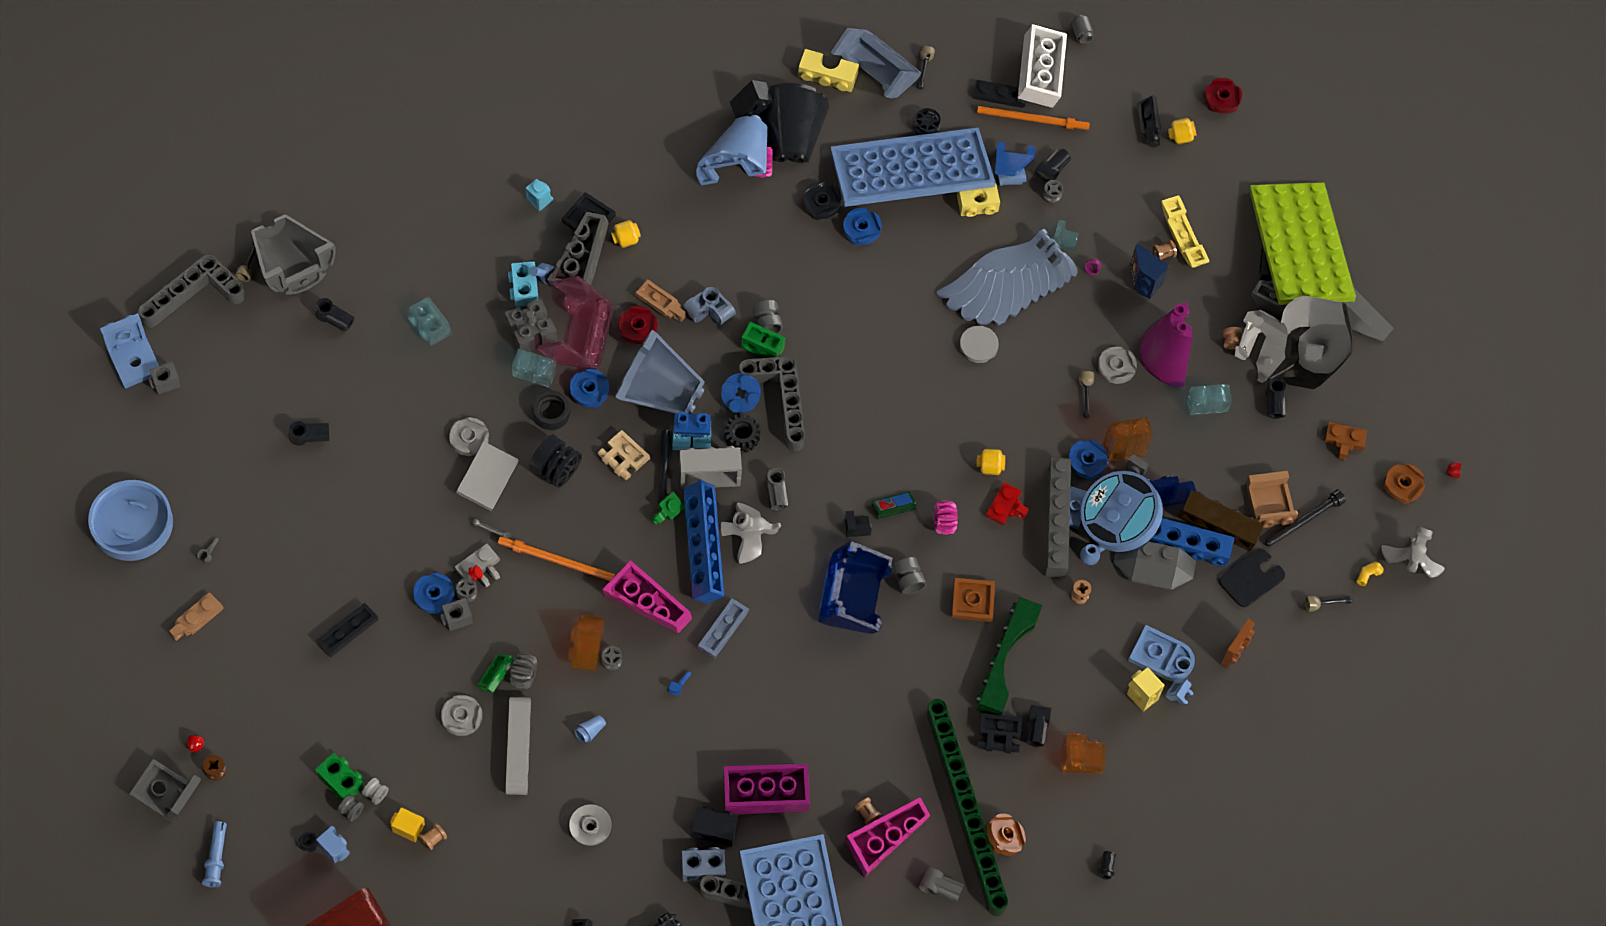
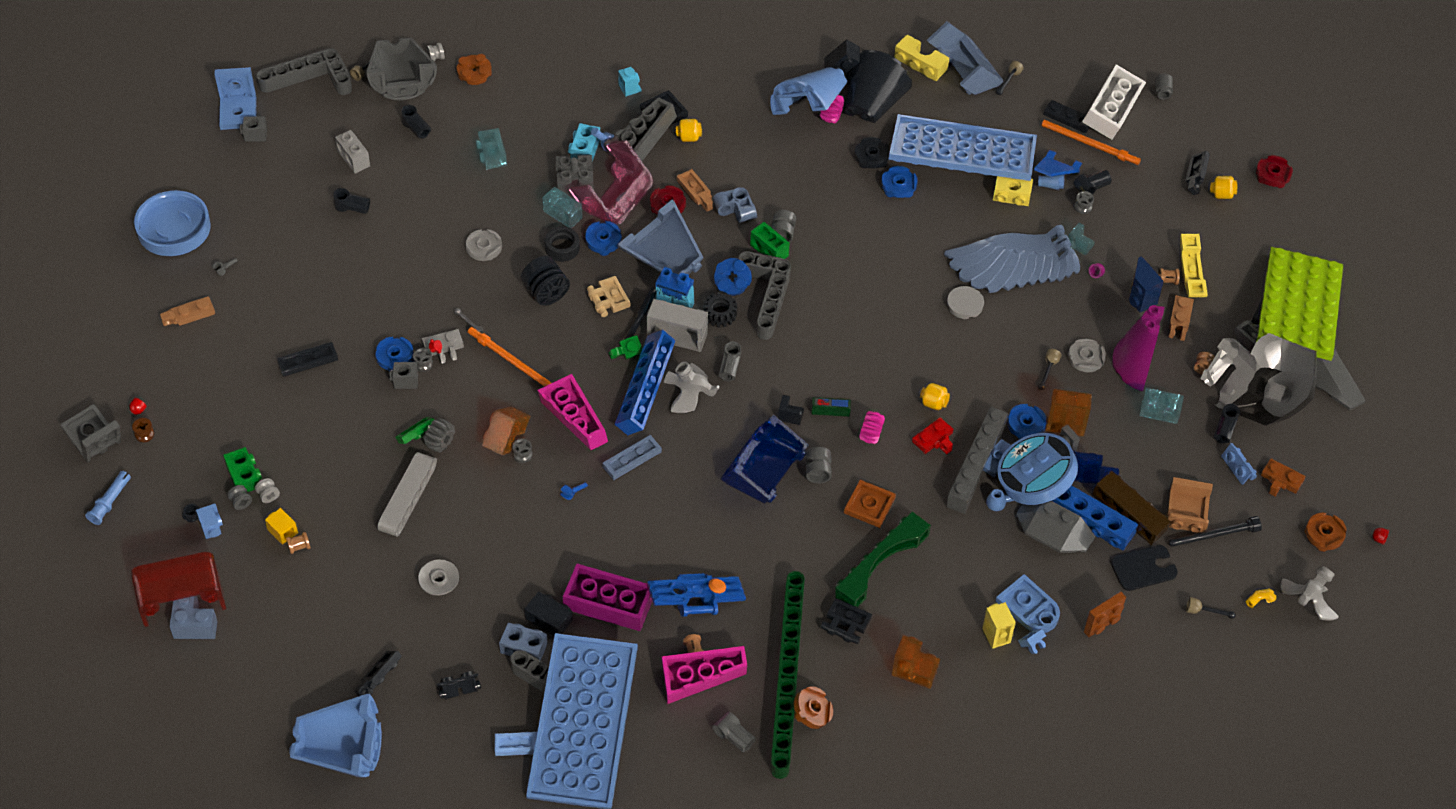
camera: 25 degrees right, 10 degrees down
(284, 372) = (352, 151): none -> light grey brick
(317, 222) = (436, 52): none -> light grey wheel
(366, 219) = (477, 62): none -> dark orange plate
(461, 715) = (371, 456): light grey tile -> none
(487, 476) = (483, 278): light grey tile -> none
(588, 730) = (476, 500): medium blue cone -> none
(848, 746) = (696, 585): none -> blue piece
(926, 122) = (991, 118): black wheel -> none
(1038, 721) = (886, 622): black piece -> none
(1085, 589) = (970, 526): medium nougat bush -> none
(1107, 865) = (897, 771): black pin -> none
(1191, 291) = (1180, 316): none -> medium nougat hinge
(1297, 435) = (1237, 464): none -> medium blue hinge

